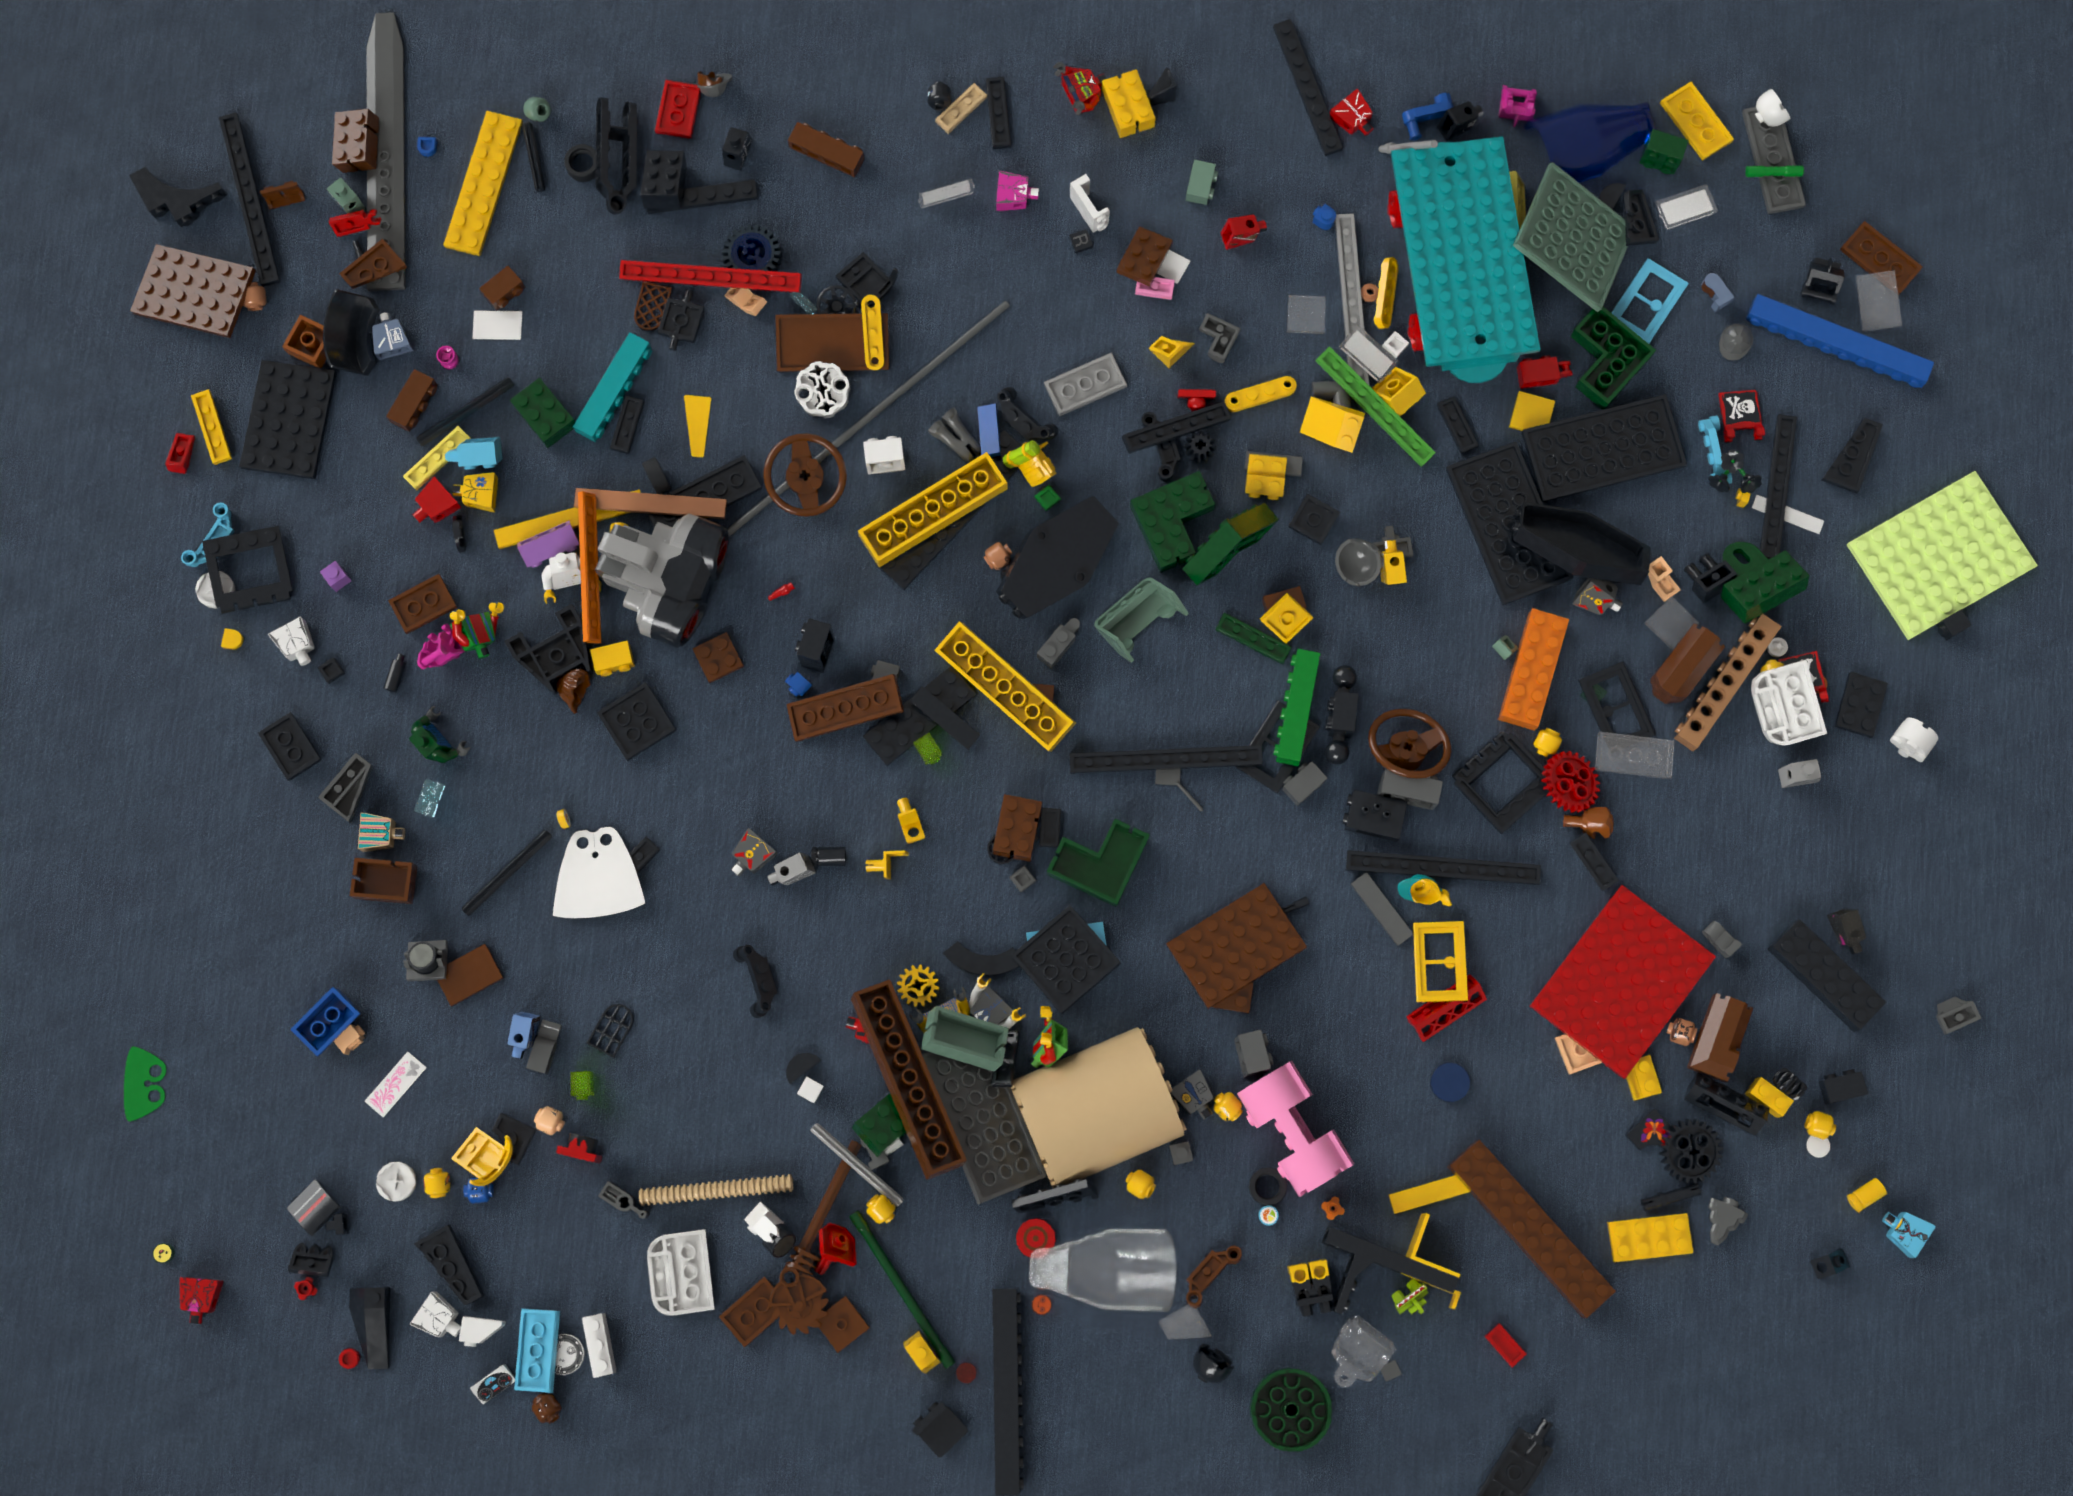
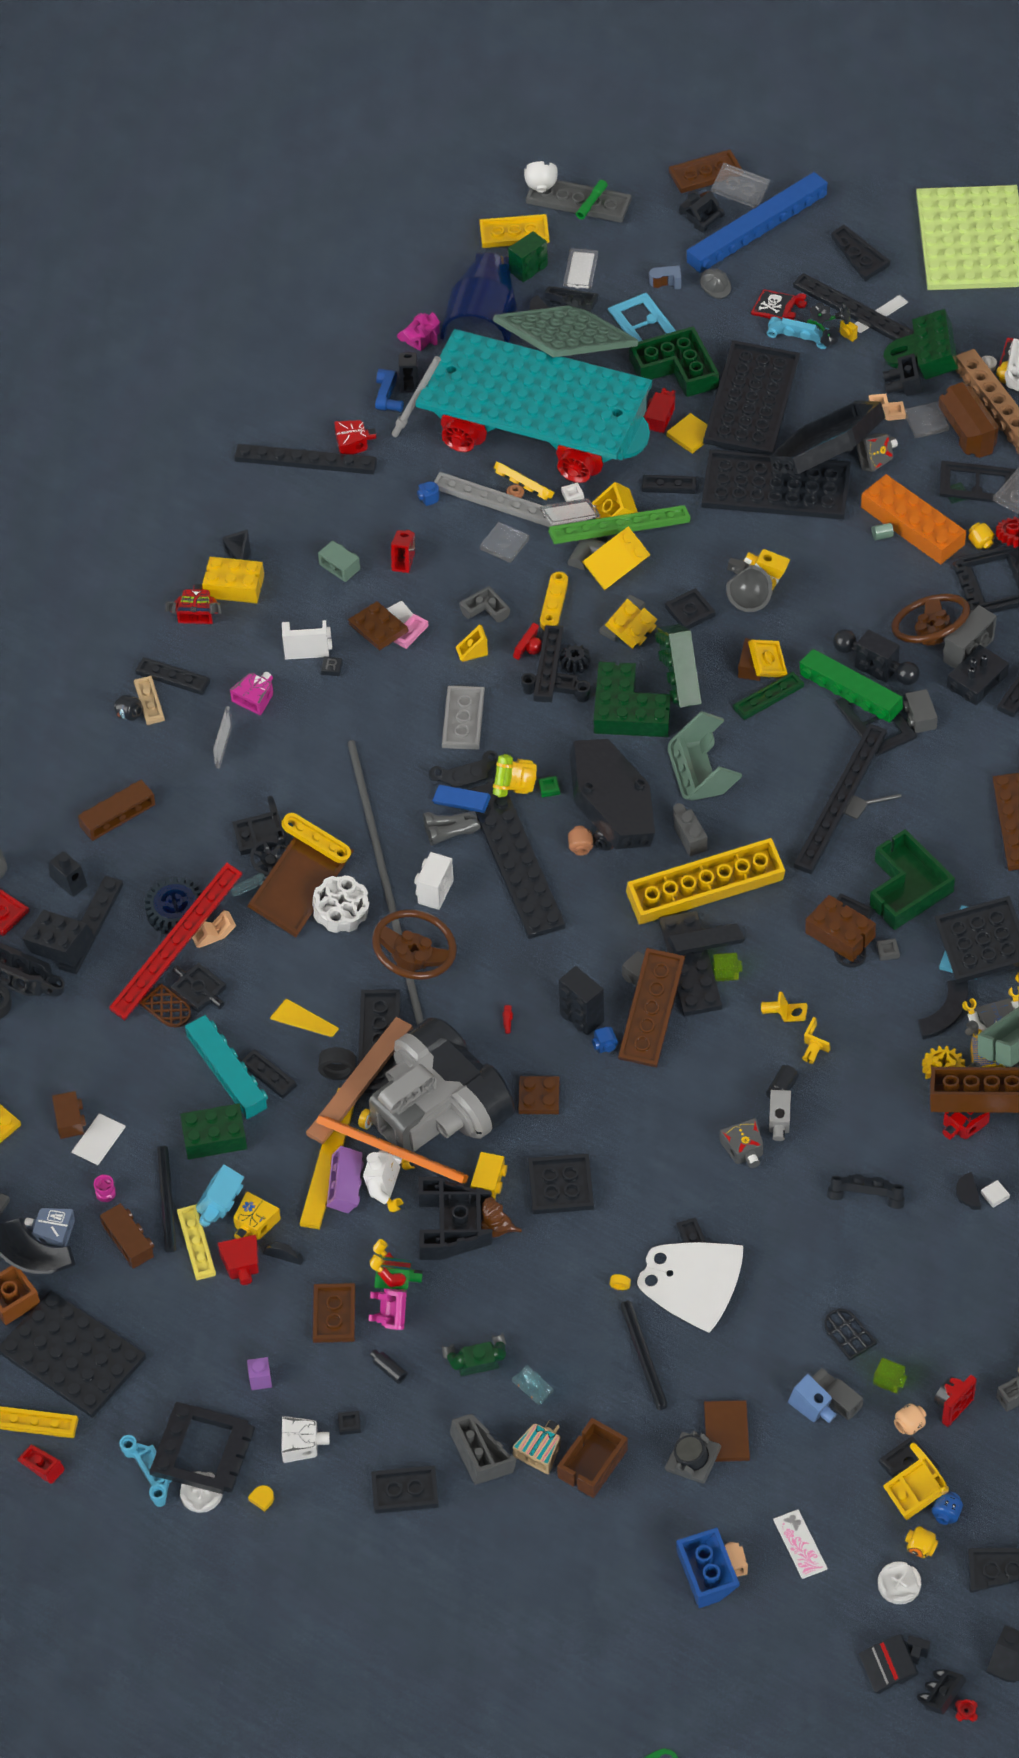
camera: 60 degrees left, 25 degrees down
(933, 509) = (510, 862): yellow brick -> none

